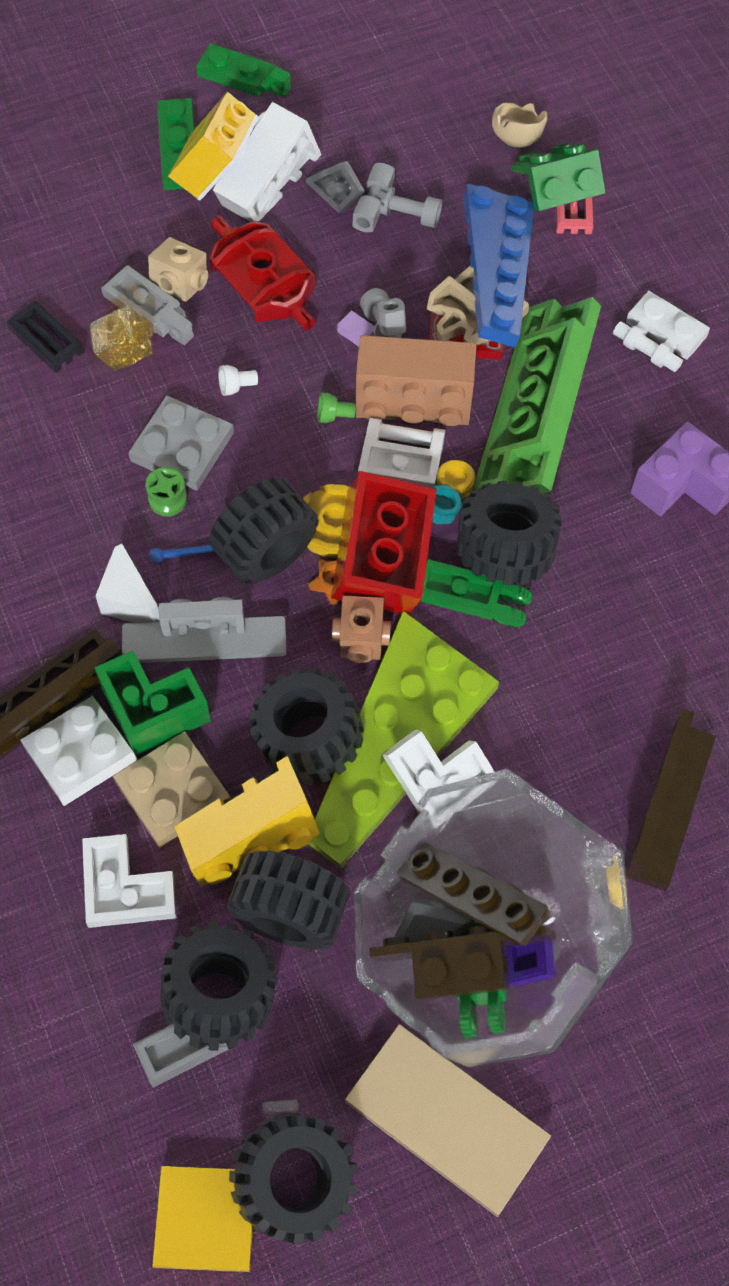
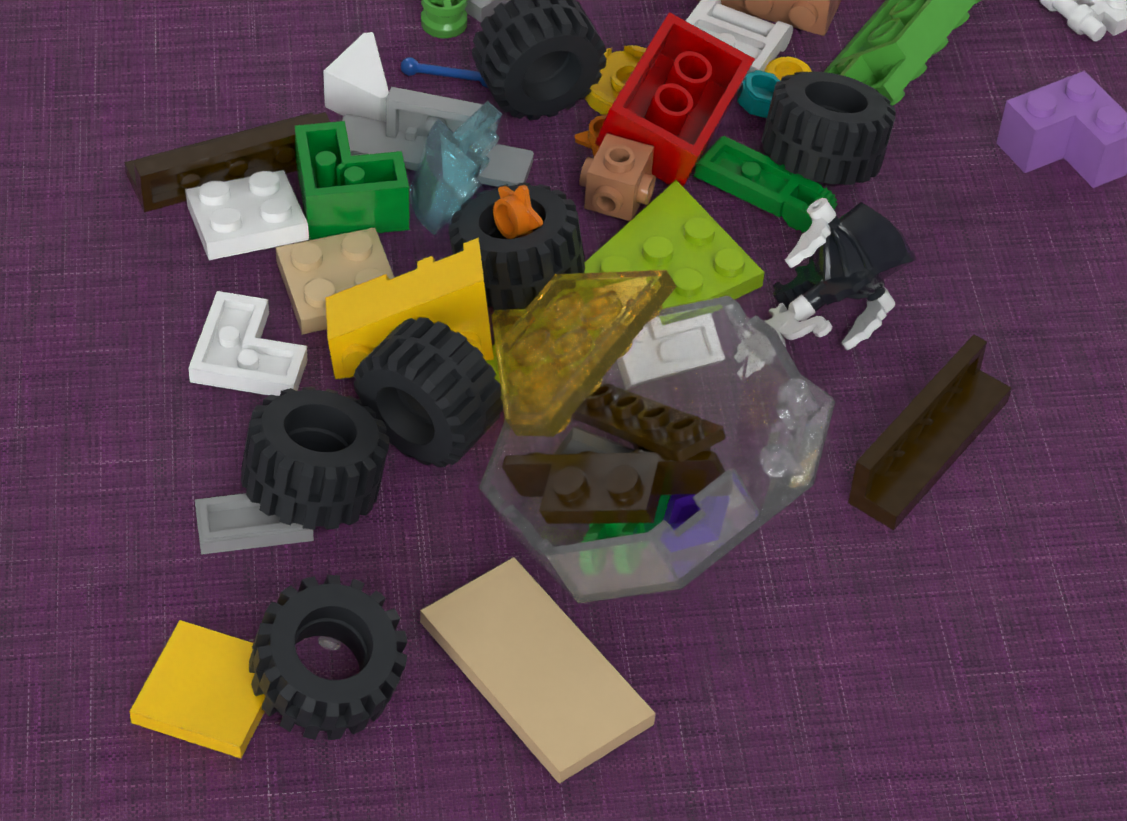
camera: 15 degrees right, 15 degrees down
(228, 675) = (451, 166): none -> clear light blue brick
(301, 708) = (514, 213): none -> orange plate
(387, 832) = (569, 341): none -> clear yellow wing
(564, 673) = (845, 261): none -> black helmet

